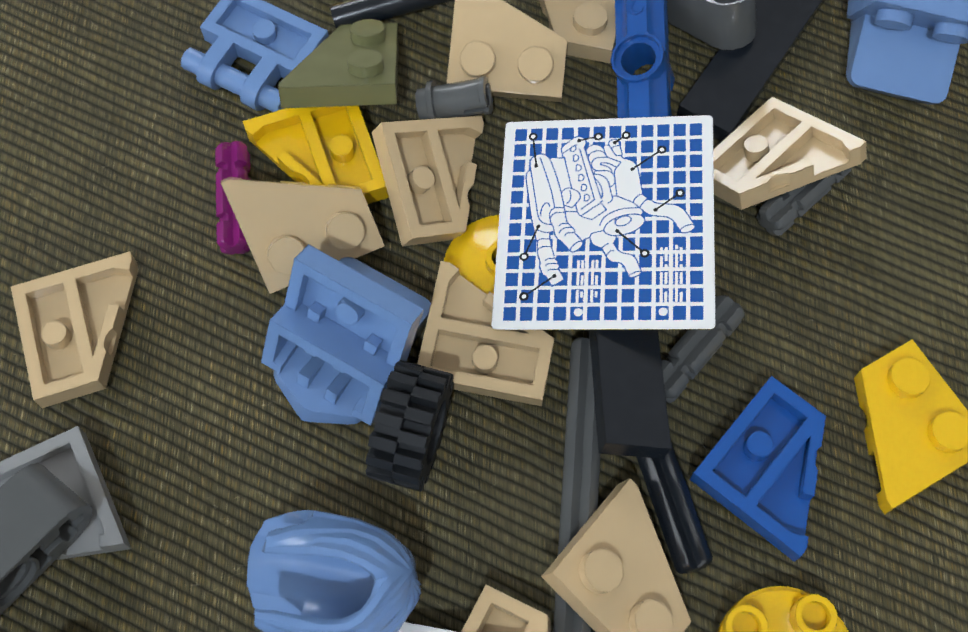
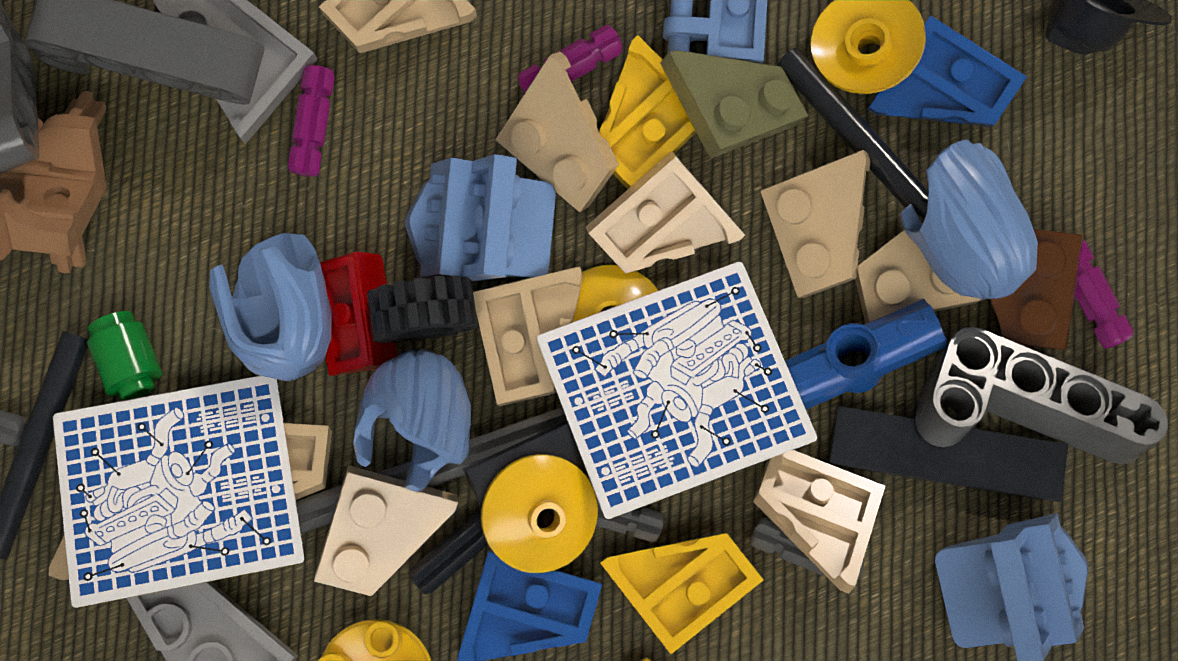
camera: 65 degrees right, 15 degrees up
(147, 466) = (311, 121): none -> magenta axle
(405, 513) = (351, 342): none -> red slope
(454, 99) = (741, 194): dark grey pin -> none
(521, 463) = (425, 405): none -> medium blue hair
(677, 399) = (519, 496): none -> yellow dish
(799, 306) = (683, 584): none -> yellow wing

